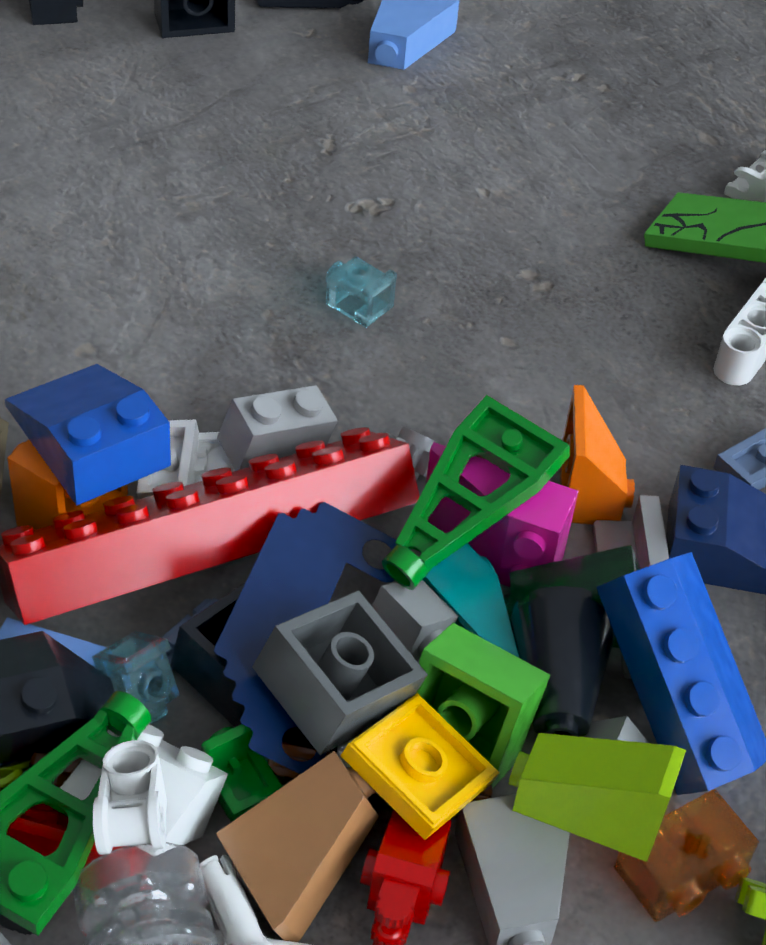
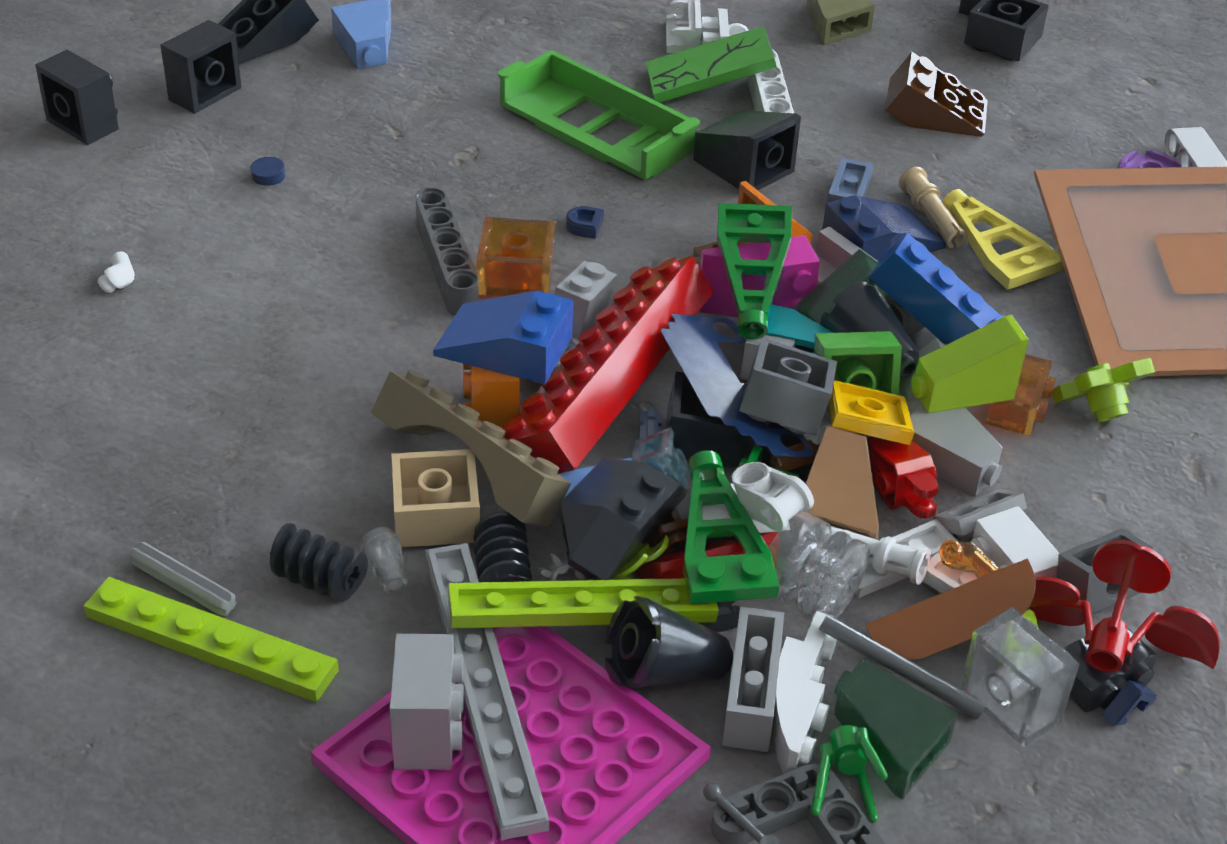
camera: 35 degrees left, 5 degrees down
(155, 127) = (268, 171): none -> dark blue tile
(214, 301) = (446, 249): none -> dark grey beam
(267, 341) = (515, 256): none -> clear orange brick
(360, 290) = (526, 201): clear light blue brick -> none
(409, 342) = (584, 221): none -> dark blue tile
(545, 171) = (557, 84): none -> bright green piece
(678, 352) = (750, 147): none -> black slope

